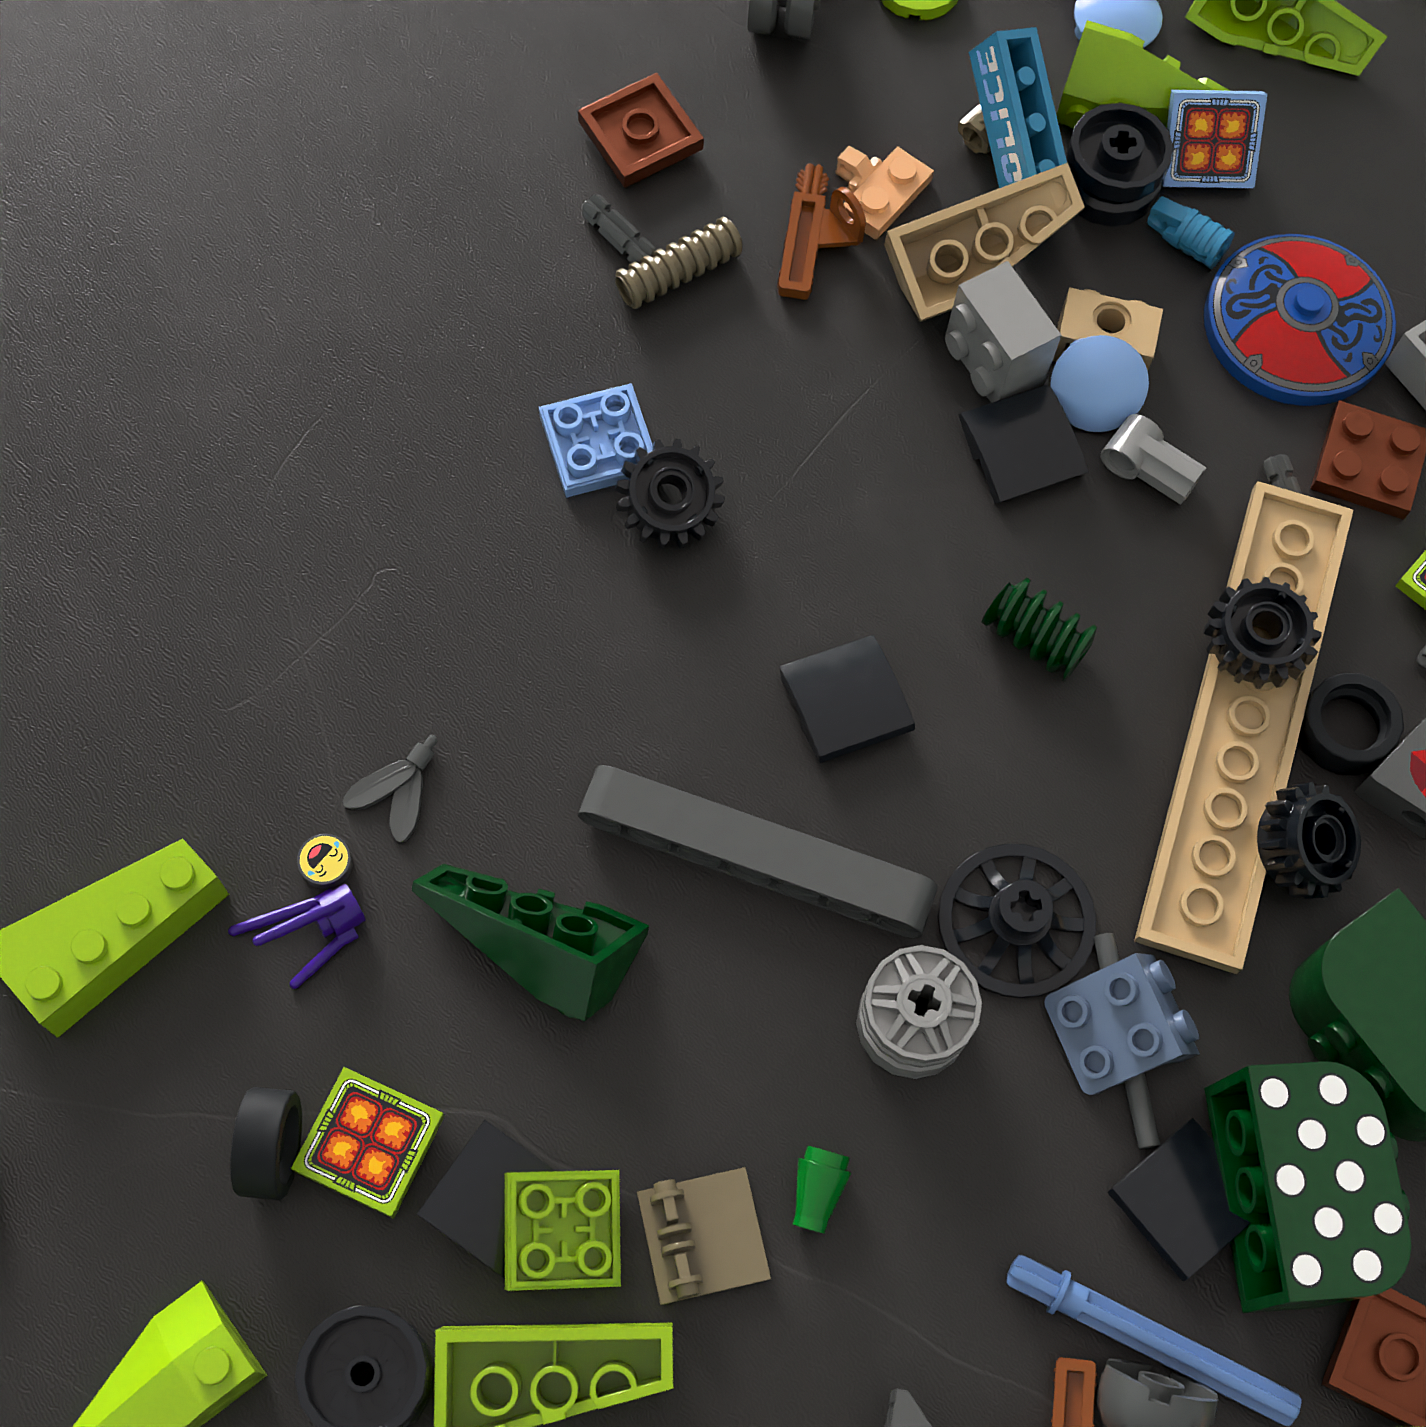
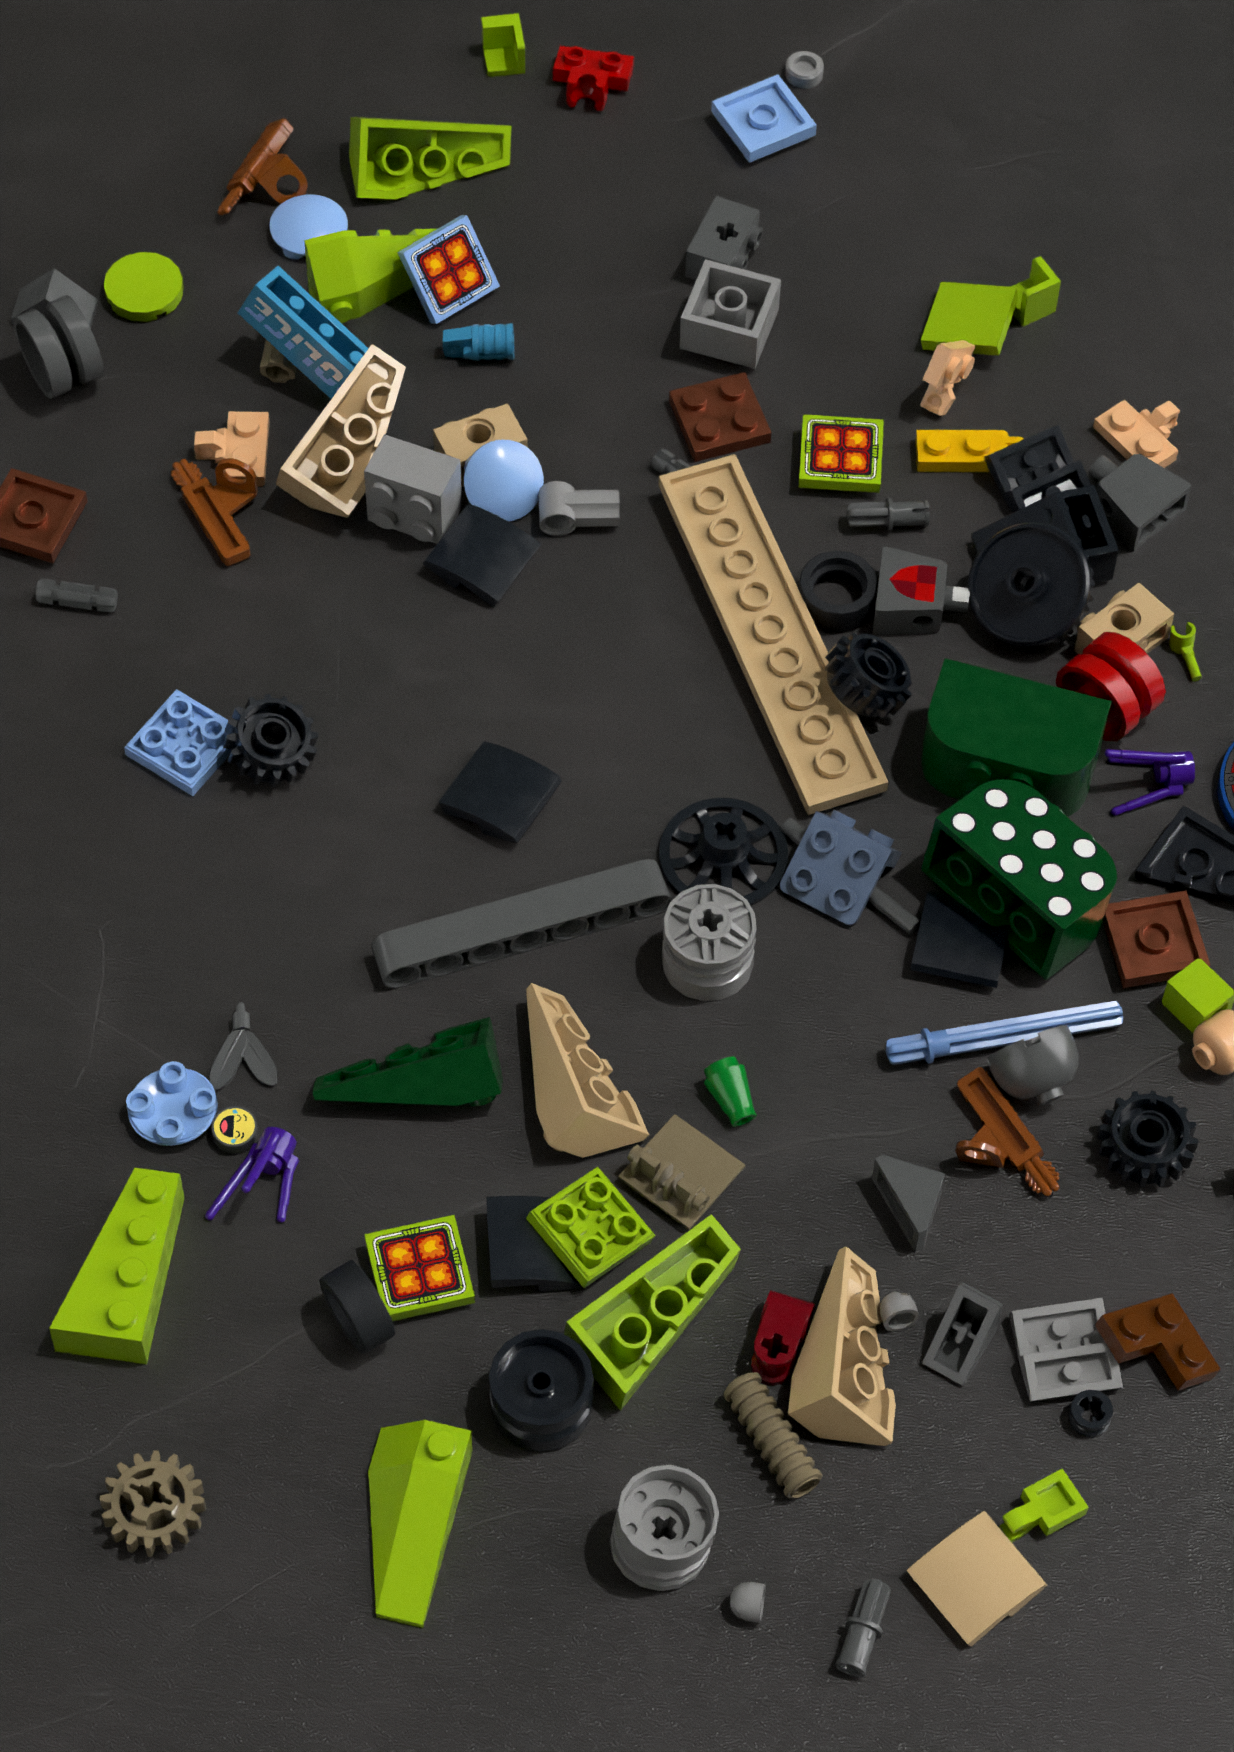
camera: 35 degrees left, 10 degrees down
(288, 794) = (172, 1105): none -> light blue dish
(665, 1072) = (572, 1084): none -> tan wedge
(678, 262) = (140, 587): dark tan piece -> none
(1040, 626) = (592, 660): dark green piece -> none
(1118, 162) = (399, 320): black wheel -> none
(1276, 611) = (742, 547): black gear -> none
(1299, 319) = (599, 355): dish -> none

